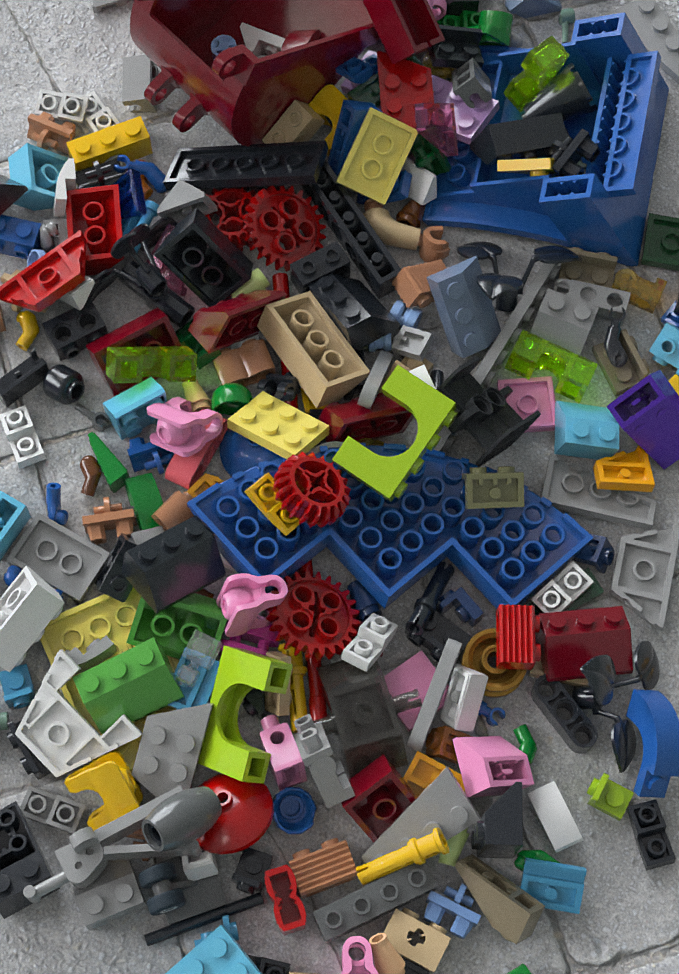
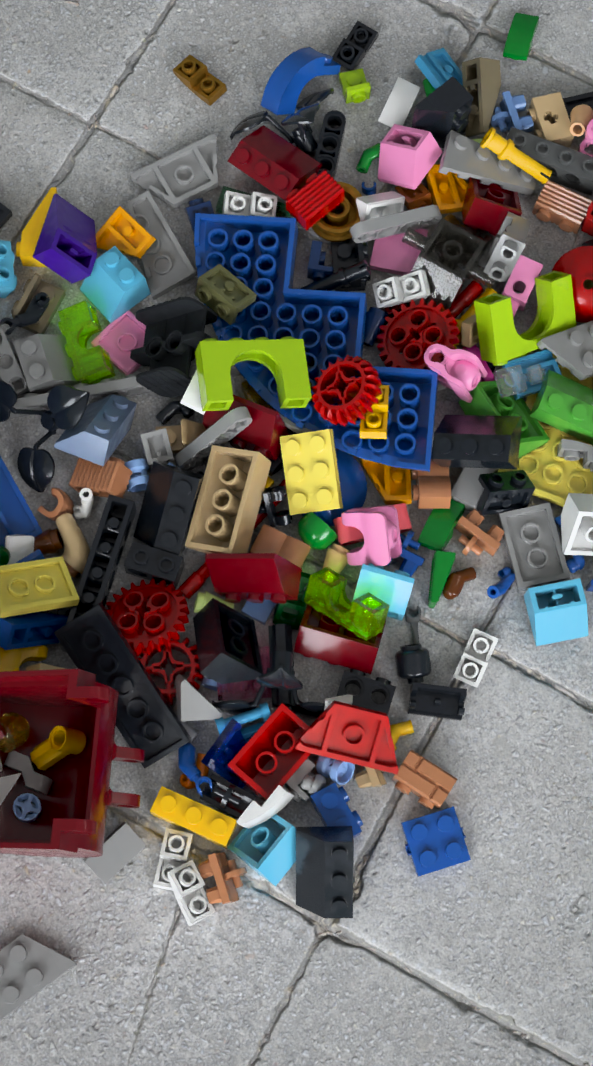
camera: 135 degrees left, 5 degrees up
(293, 810) = (547, 249): blue hair -> none
(415, 258) = (85, 509): none -> white arm

